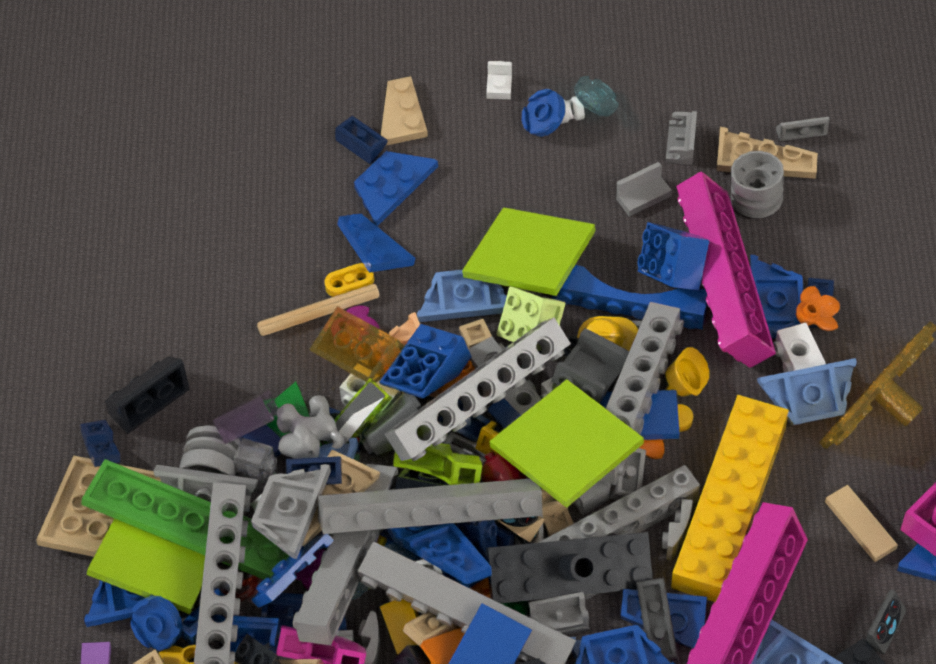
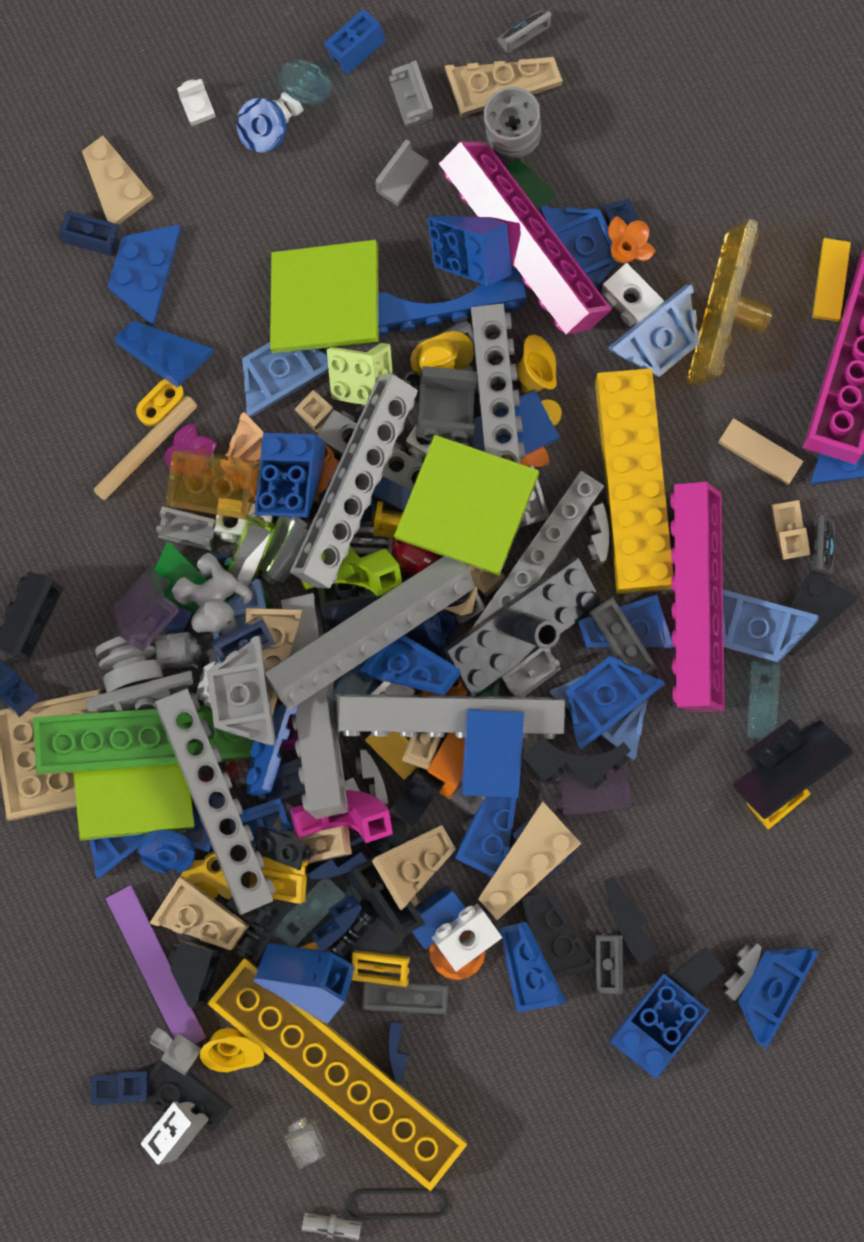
camera: 25 degrees left, 25 degrees up
(317, 379) = (186, 528): none -> light grey hinge
(653, 84) = (355, 41): none -> blue hinge
(752, 238) = (530, 183): none -> dark green slope
(859, 597) = (789, 529): none -> tan slope

